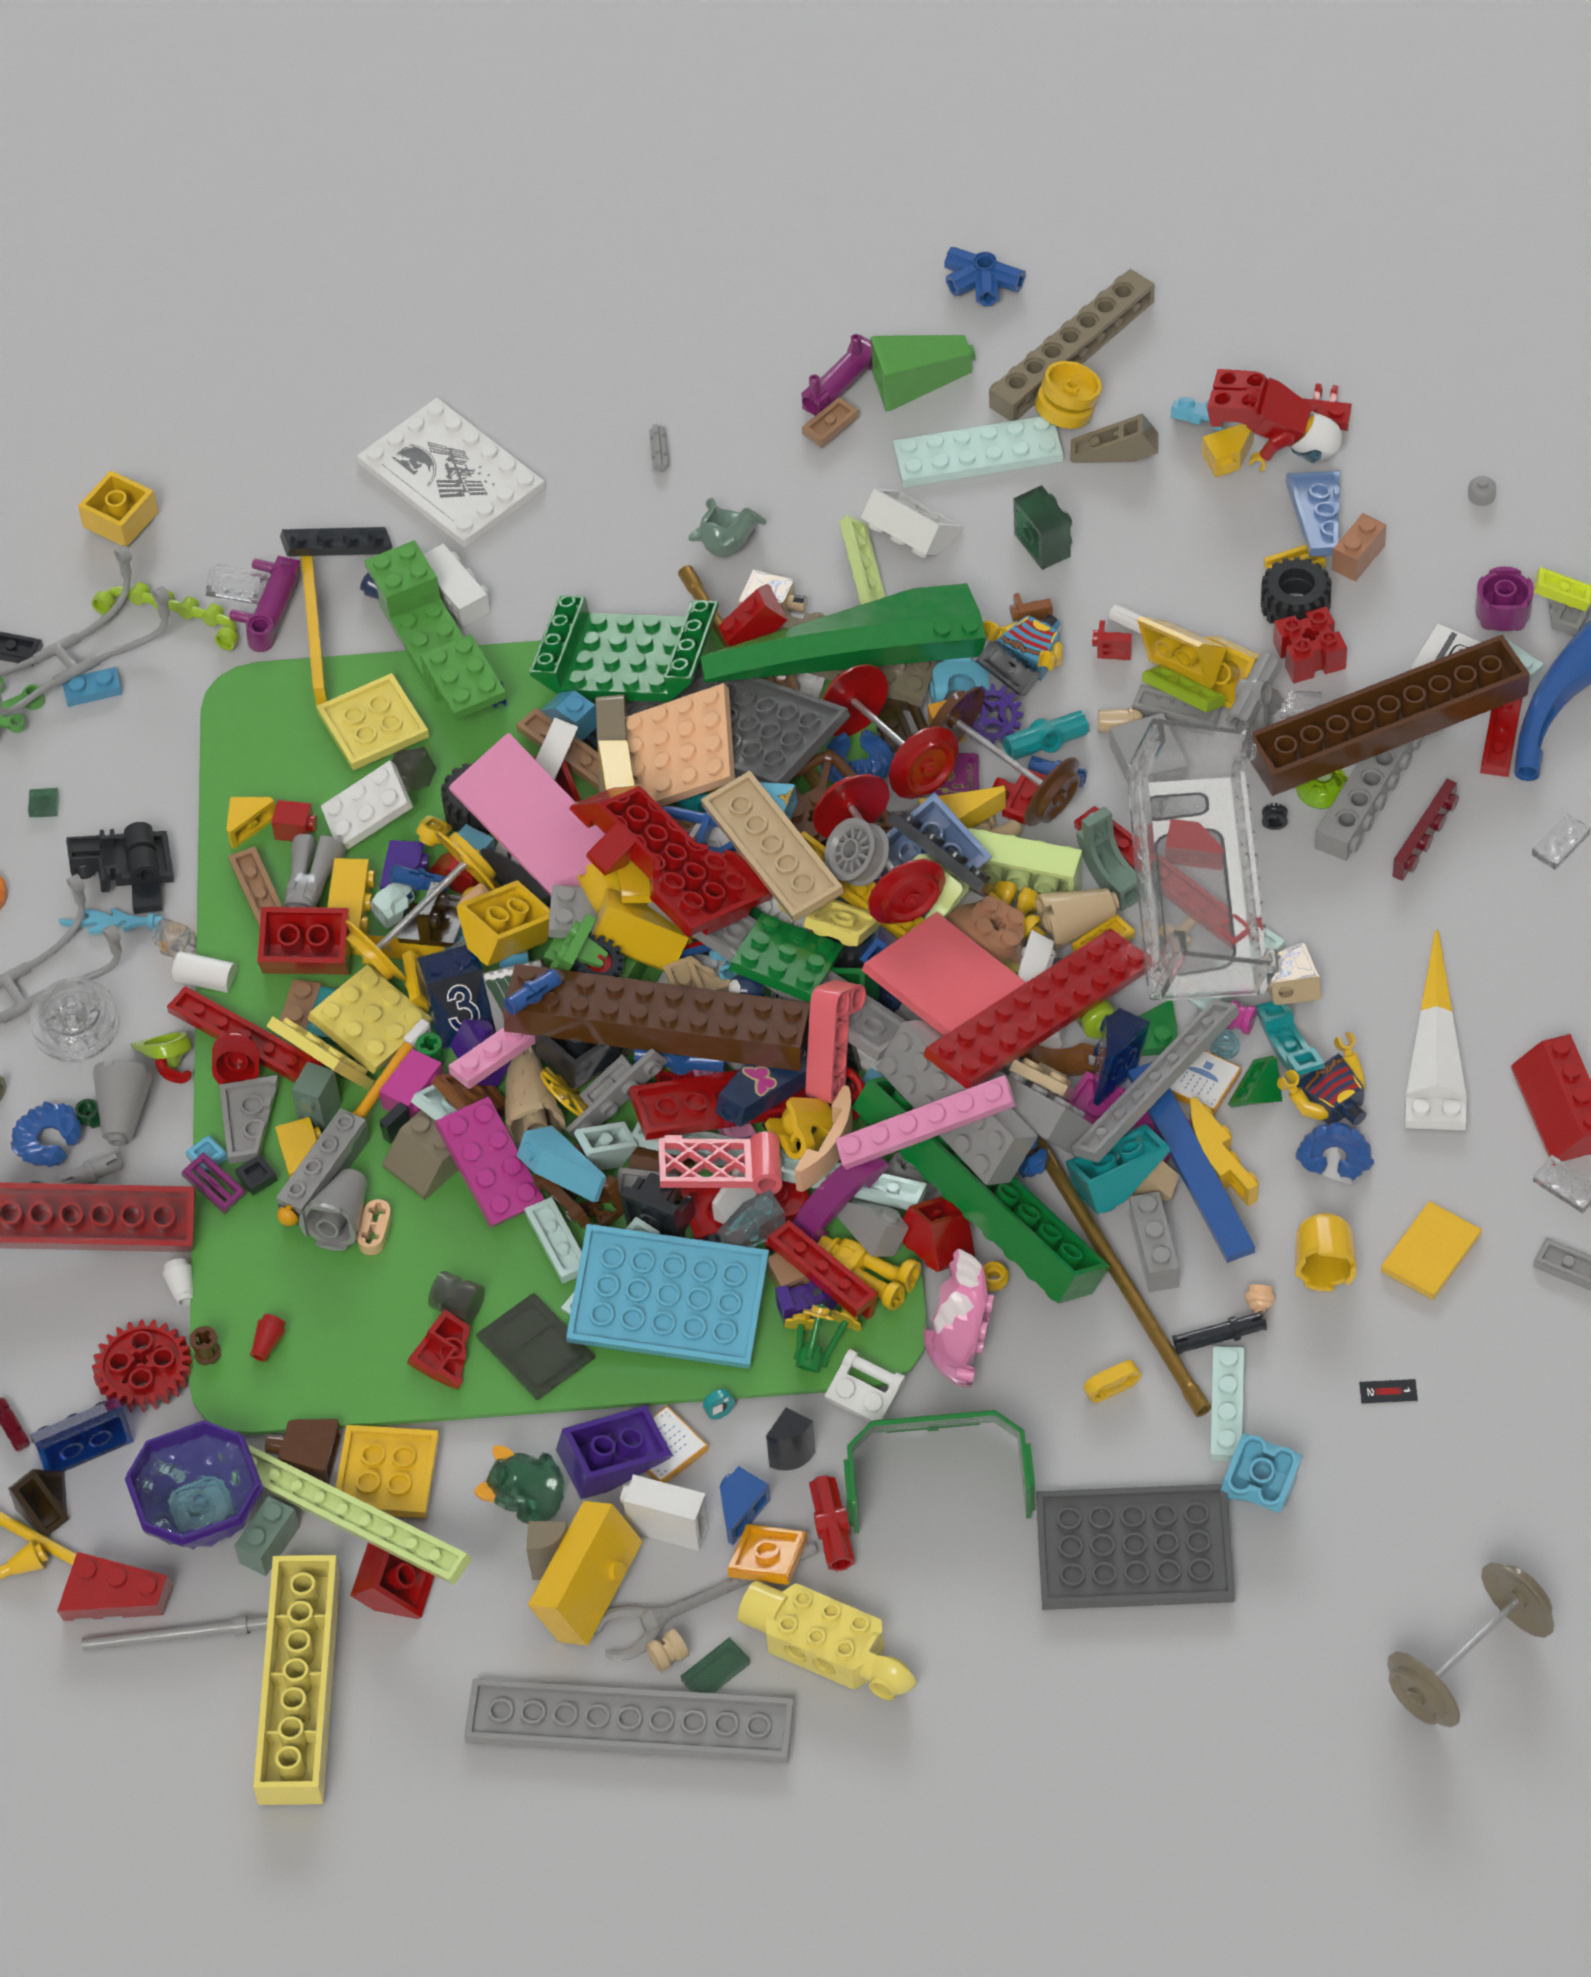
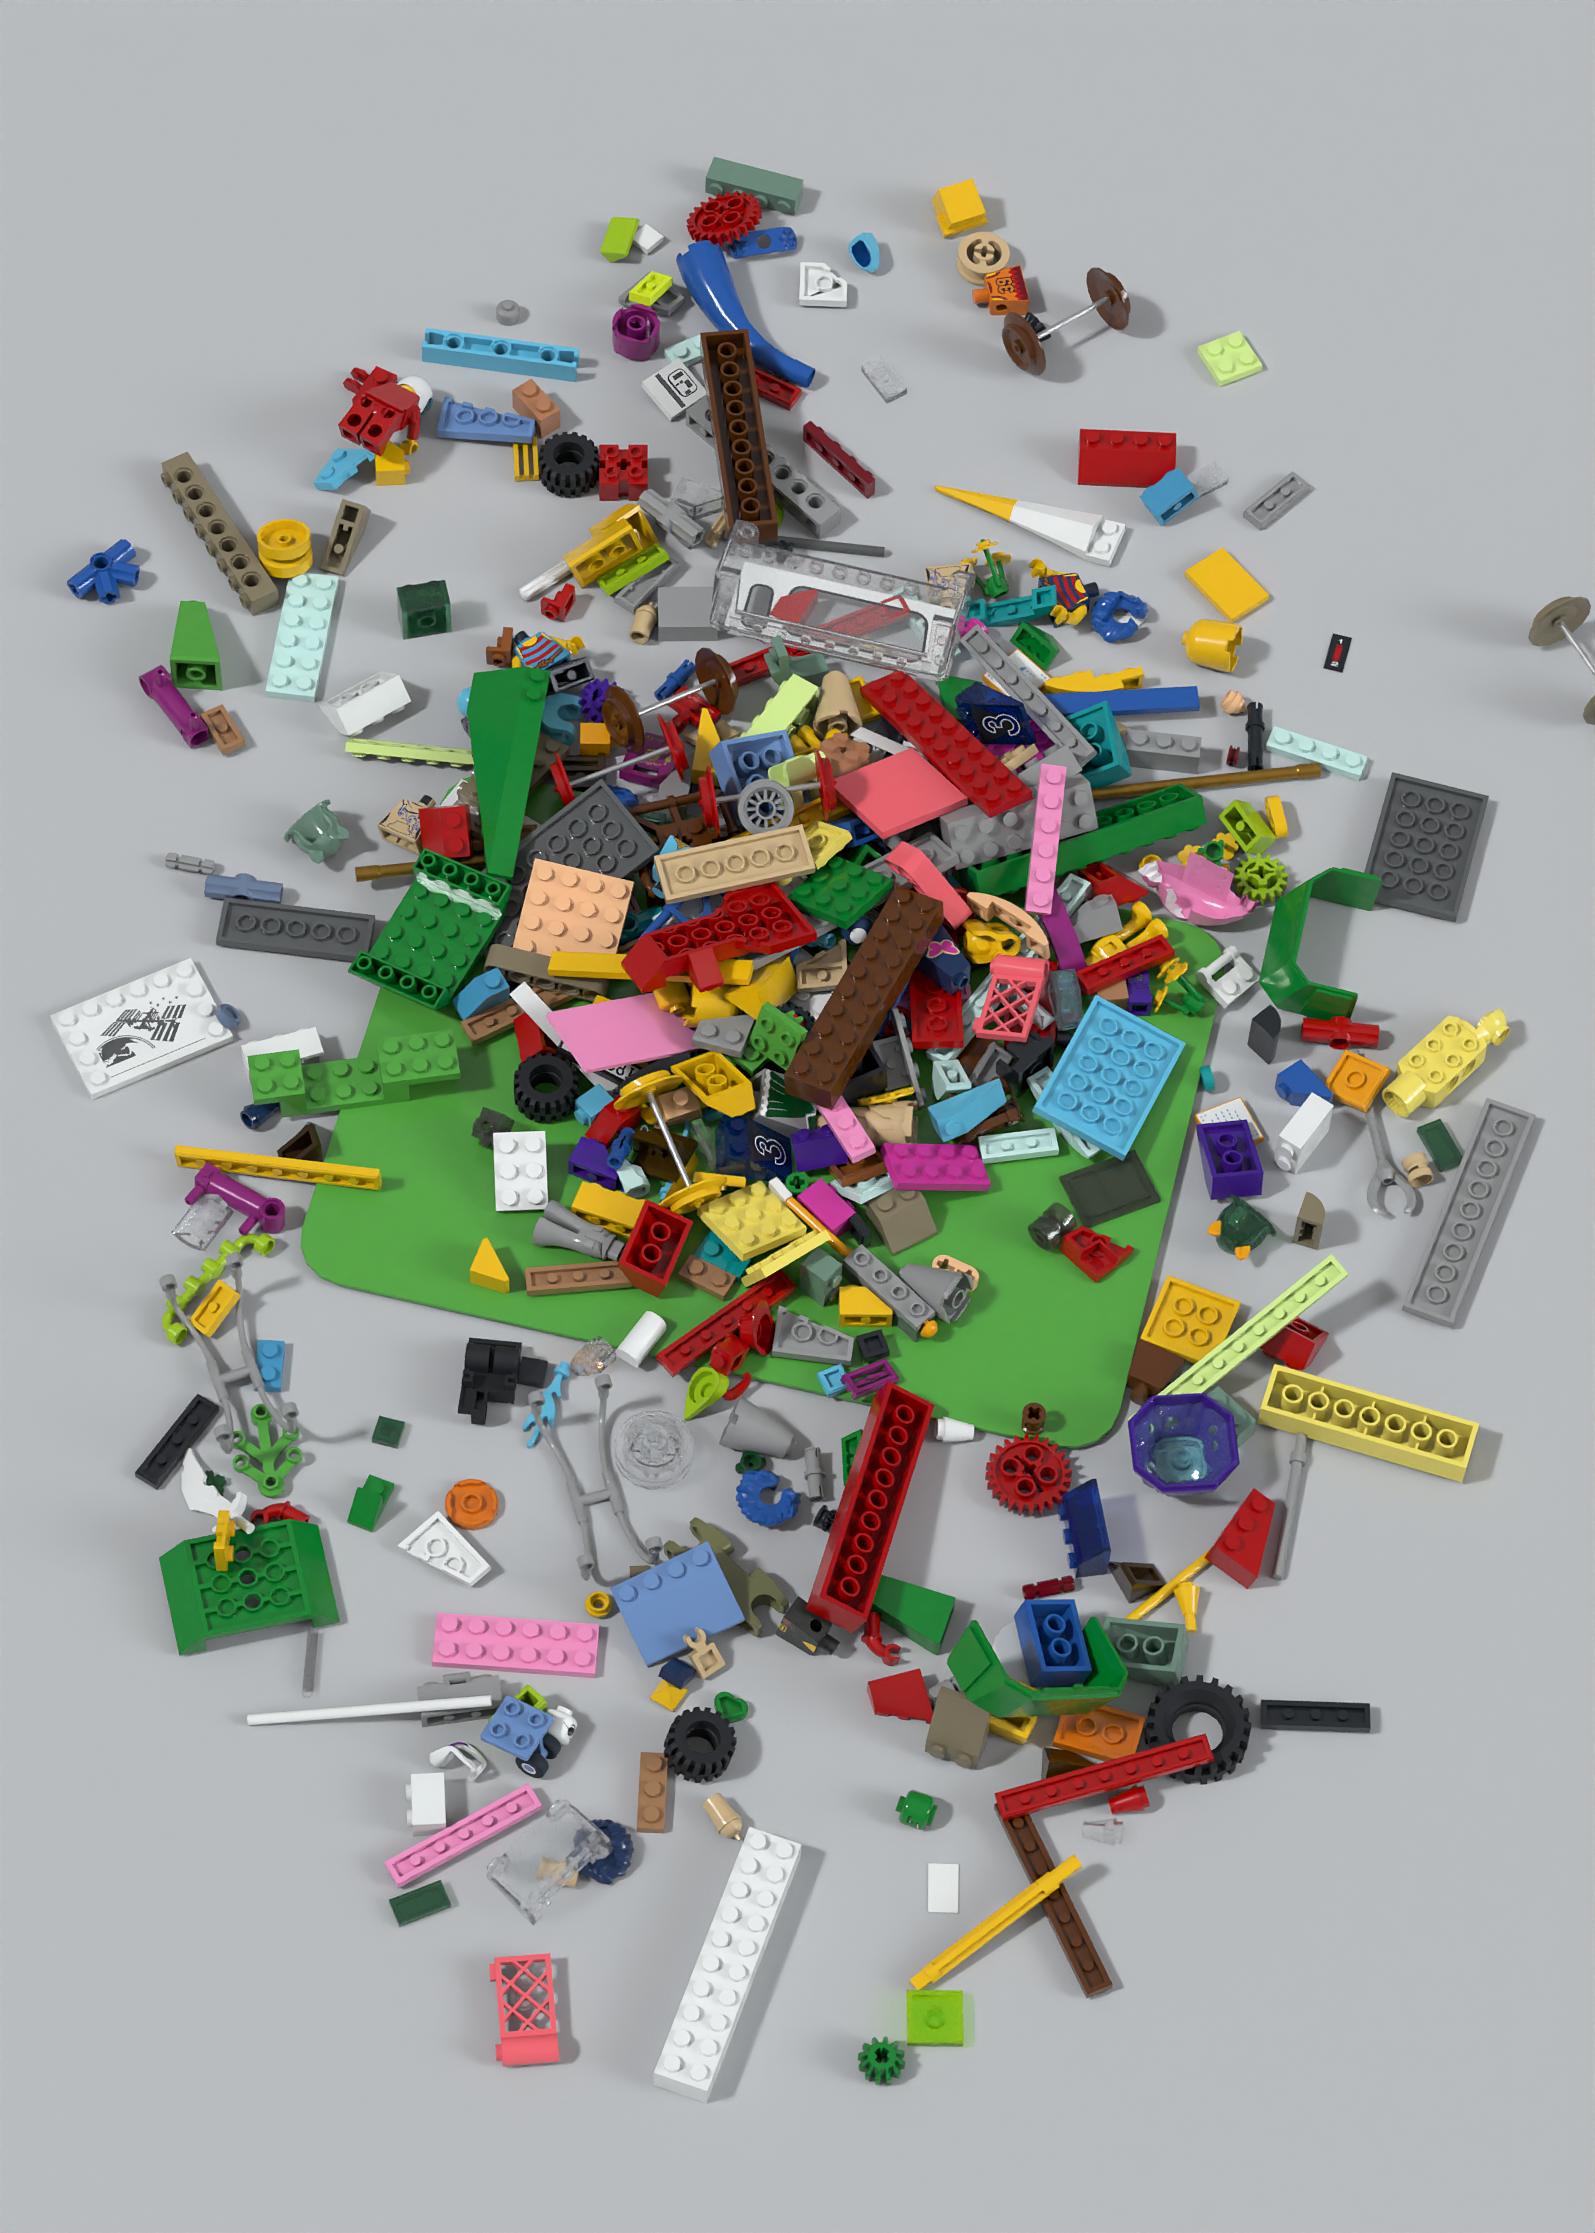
camera: 80 degrees left, 5 degrees up
(118, 508) = (75, 1293): yellow brick -> none
(134, 620) = (214, 1308): none -> yellow plate
(196, 1045) = (729, 1354): none -> red brick
(267, 1335) = (1038, 1373): red cone -> none
(292, 819) = (507, 1233): red brick -> none
(335, 541) = (198, 1128): black plate -> none
(352, 636) = (303, 1145): none -> dark brown slope
(372, 721) = (418, 1149): light yellow plate -> none
(428, 828) = (567, 1127): yellow plate -> none
(484, 529) = (228, 1016): none -> sand blue tile
(532, 991) = (830, 1062): blue pin -> none
(585, 1573) = (1342, 1199): yellow brick -> none
(609, 550) = (294, 929): none -> dark grey plate
(641, 496) = (243, 887): none -> sand blue piece
(934, 846) = (783, 753): black plate -> none
(1015, 1397) = (1260, 878): none -> lime gear
(1021, 1314) = (1213, 851): none -> plant
(1046, 735) = (639, 674): teal piece -> none
(1078, 1352) = (1247, 827): none -> lime brick
(1183, 1316) = (1232, 755): none -> dark red piece
(1261, 1473) = (1397, 743): medium azure piece -> none
(1304, 852) = (827, 545): none -> dark grey bar
(1318, 1020) = (996, 584): none -> green plant
(1417, 499) = (500, 355): none -> medium azure piece
(1522, 1151) = (1169, 496): none -> dark azure brick

